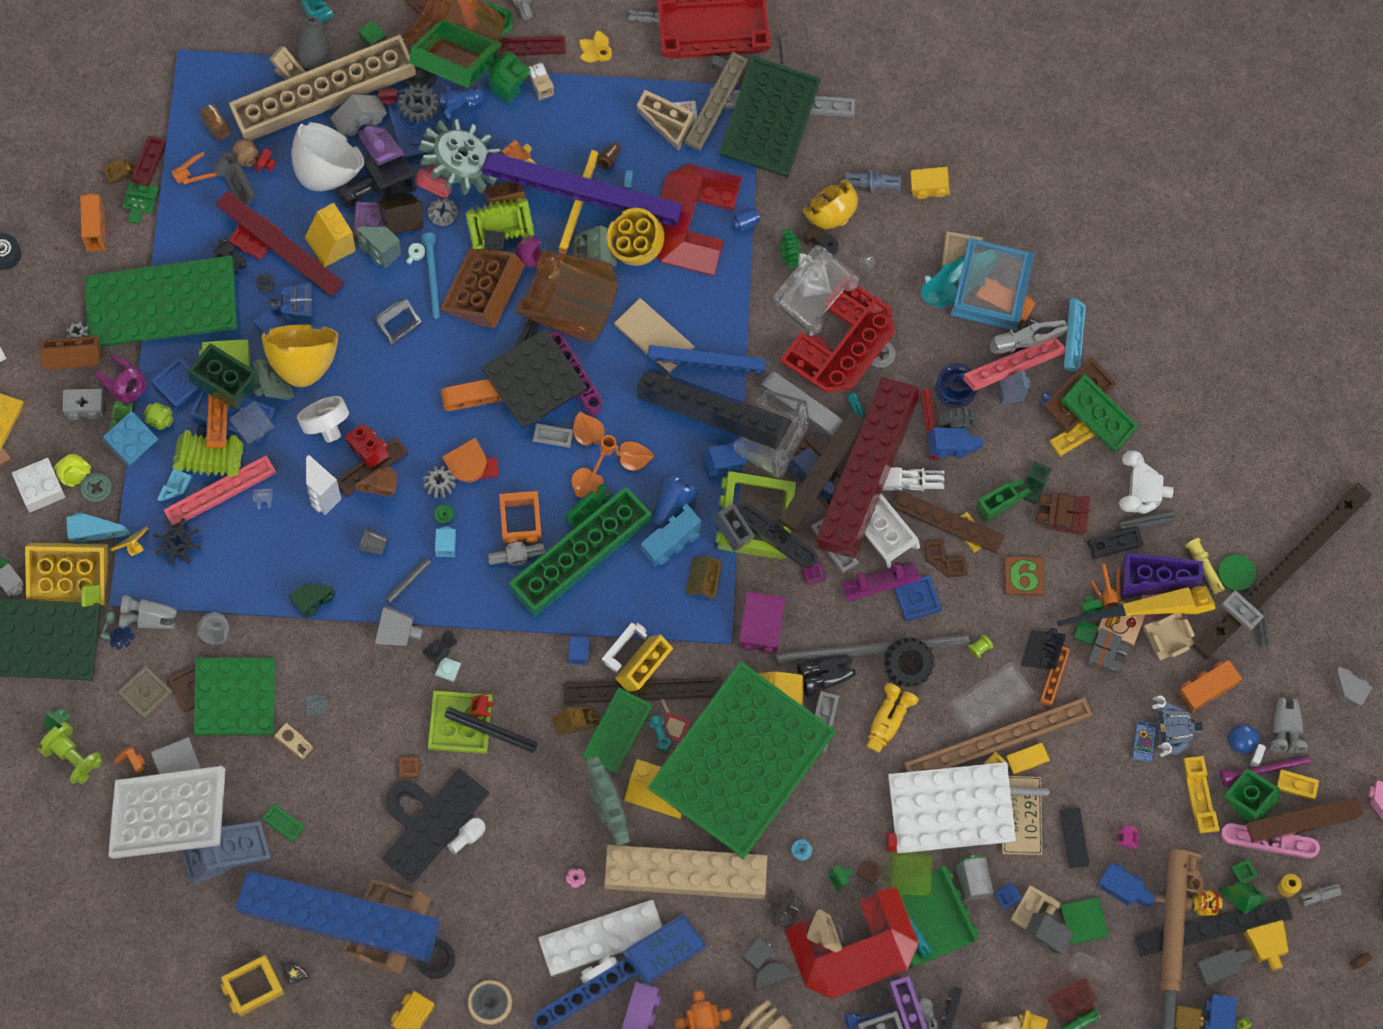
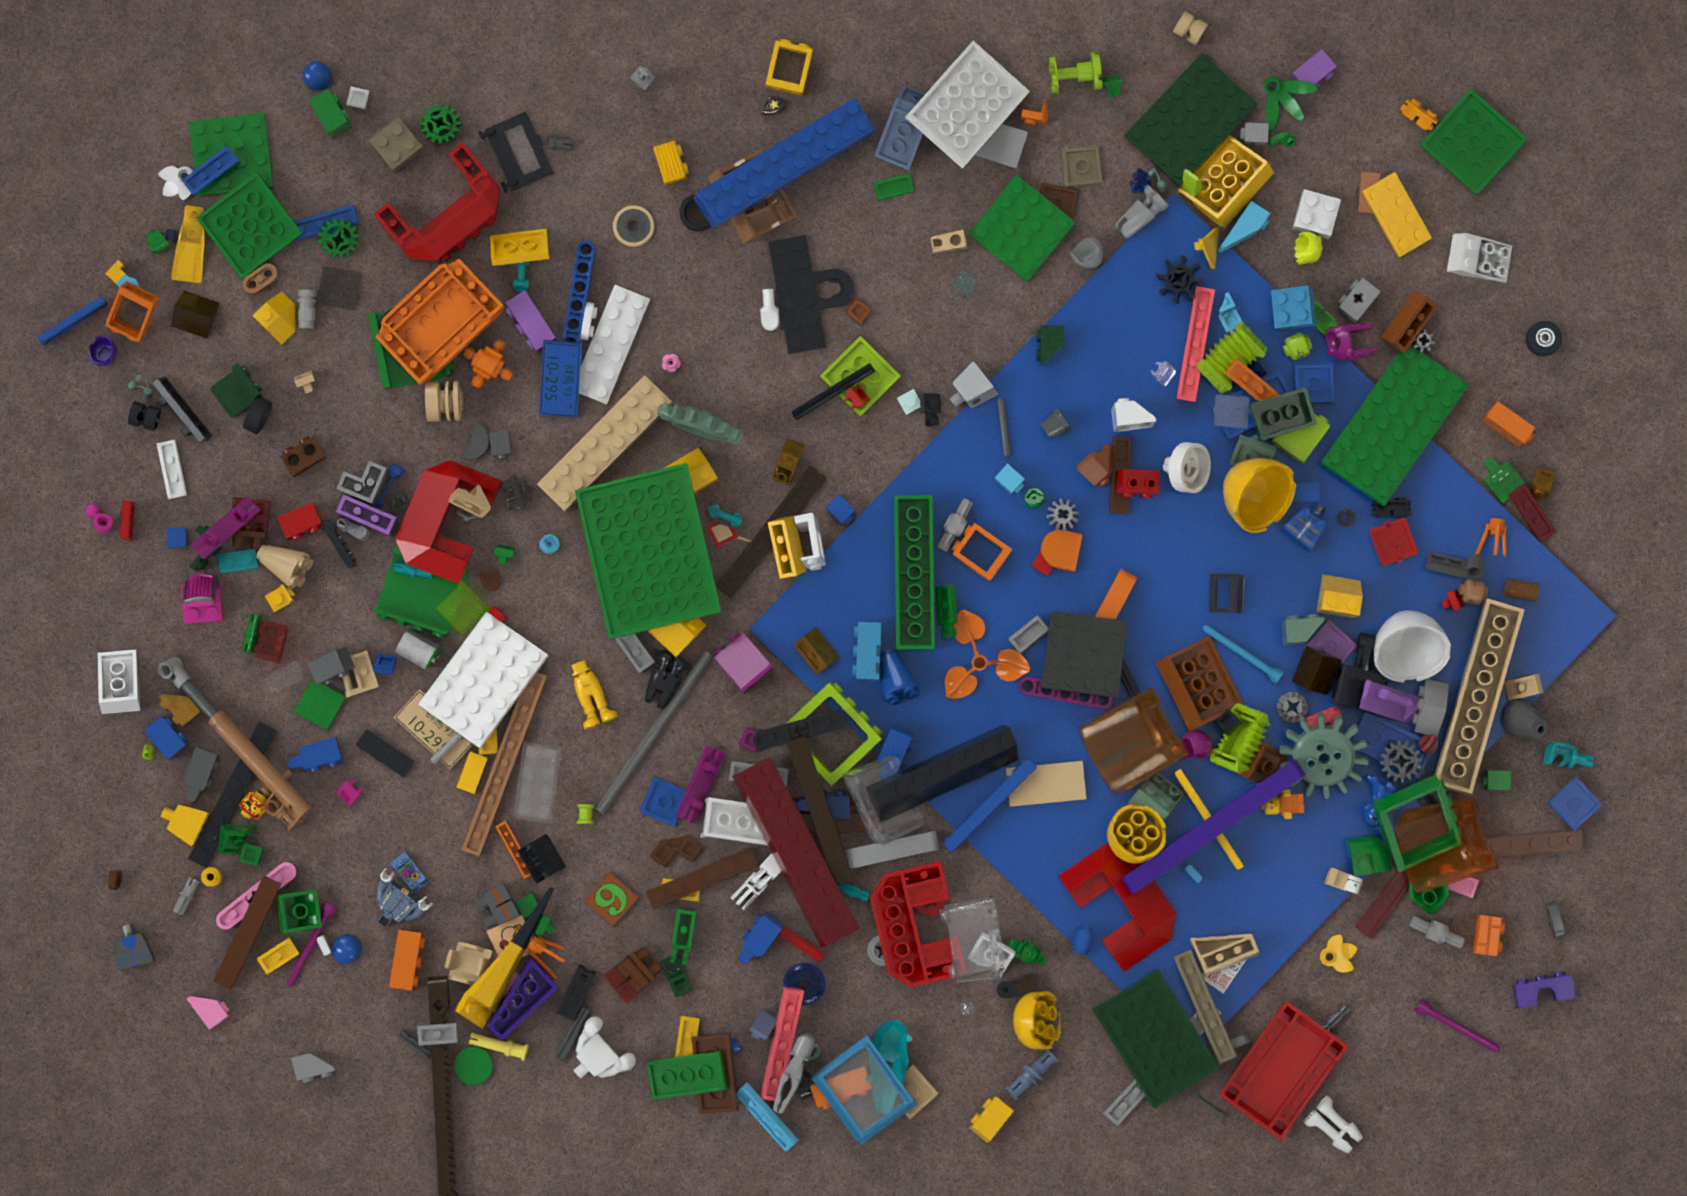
camera: 135 degrees right, 15 degrees up
(95, 479) = (1283, 248): sand green gear -> none
(279, 244) = (1367, 553): dark red tile -> none
(413, 255) = (1274, 652): light aqua piece -> none
(608, 156) = (1230, 879): reddish brown cone -> none
(618, 730) = (754, 486): green tile -> none
(734, 527) = (829, 699): dark grey brick -> none
(925, 667) = (607, 736): black tyre -> none
(959, 418) = (773, 958): dark grey gear -> none
(1199, 795) = (332, 874): yellow slope -> none
(1288, 721) = (328, 993): light grey piece -> none

